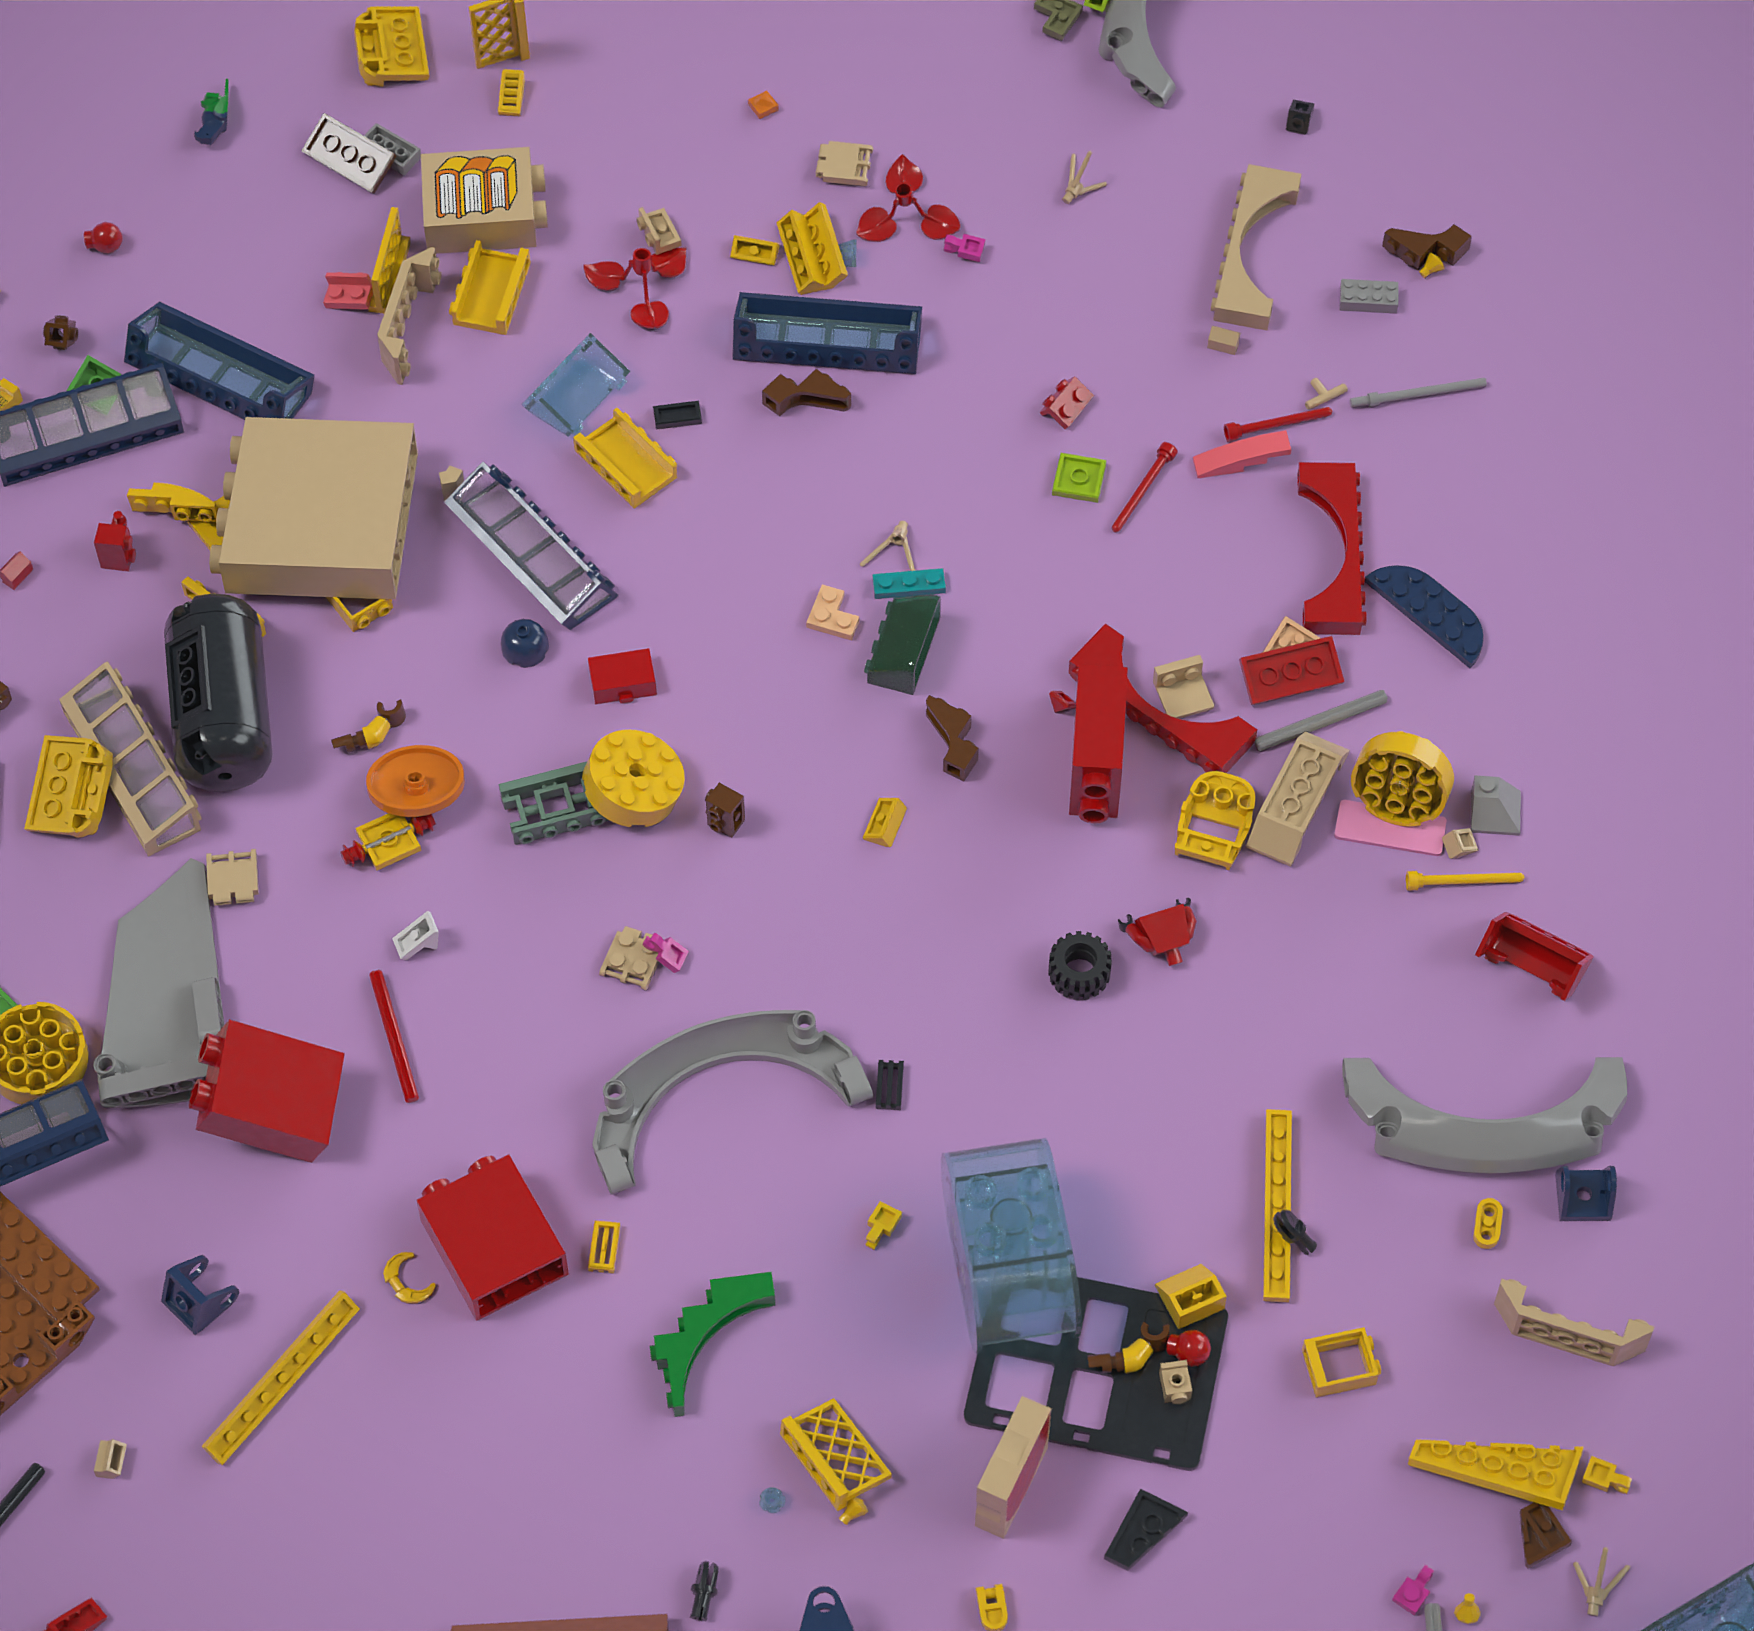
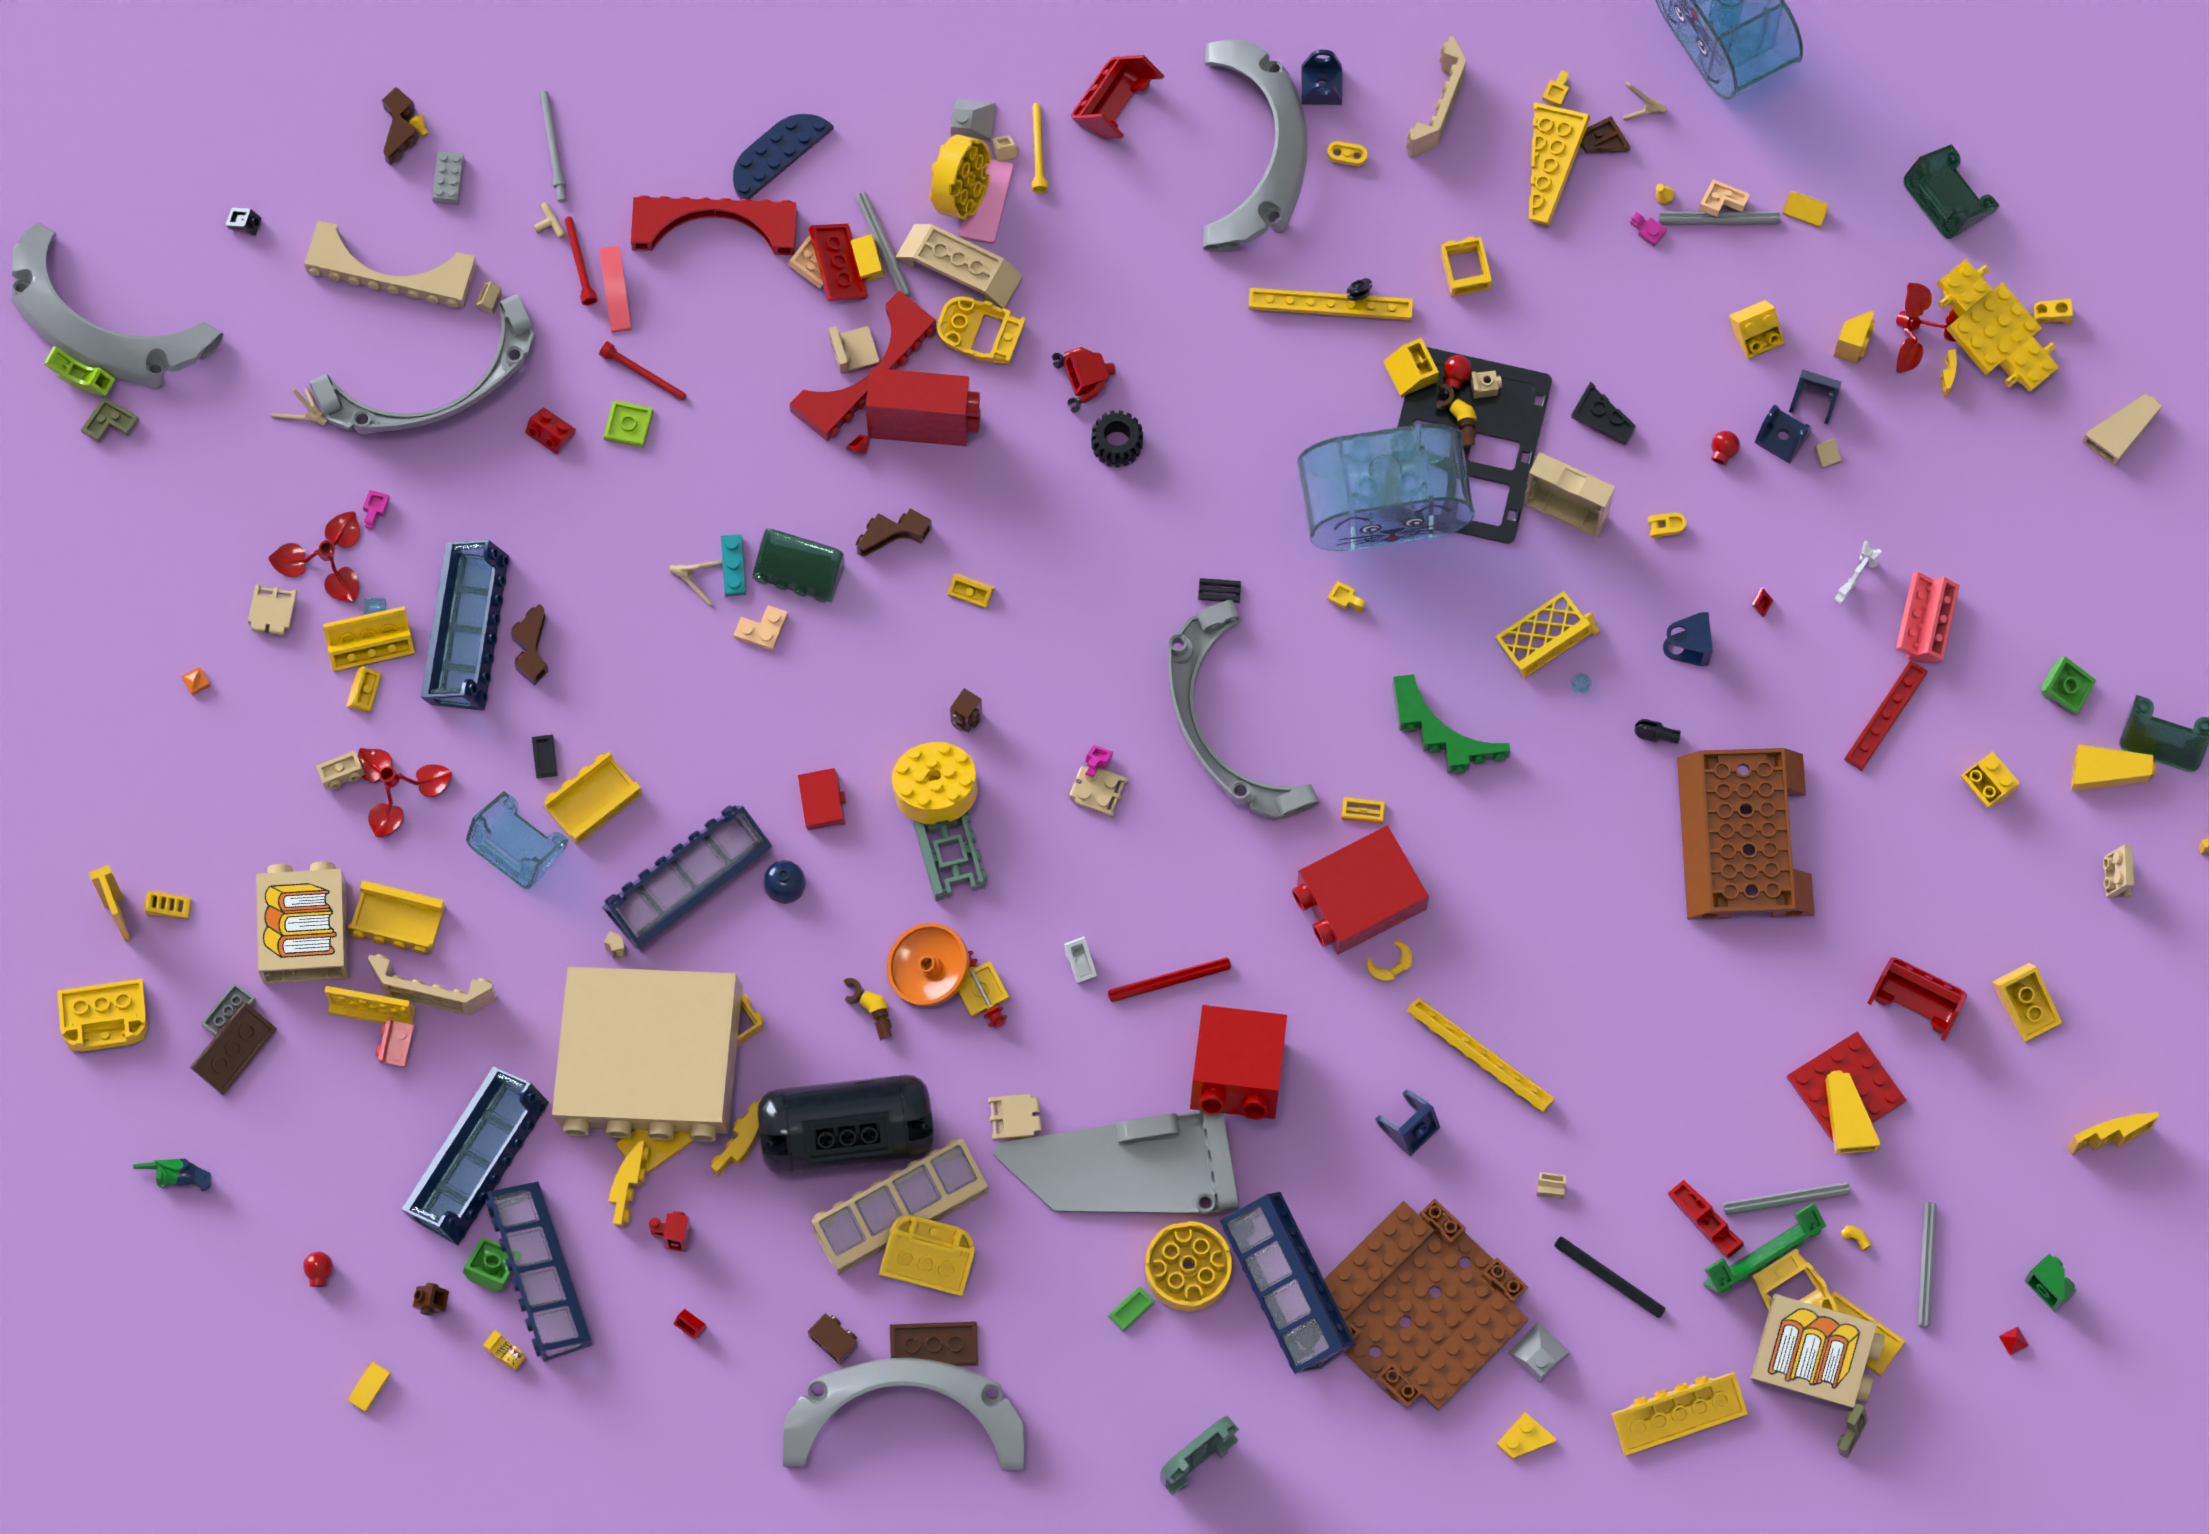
camera: 90 degrees left, 10 degrees up
(1067, 231) = (514, 343): none -> light grey panel
(1300, 702) = (867, 258): none -> yellow hinge

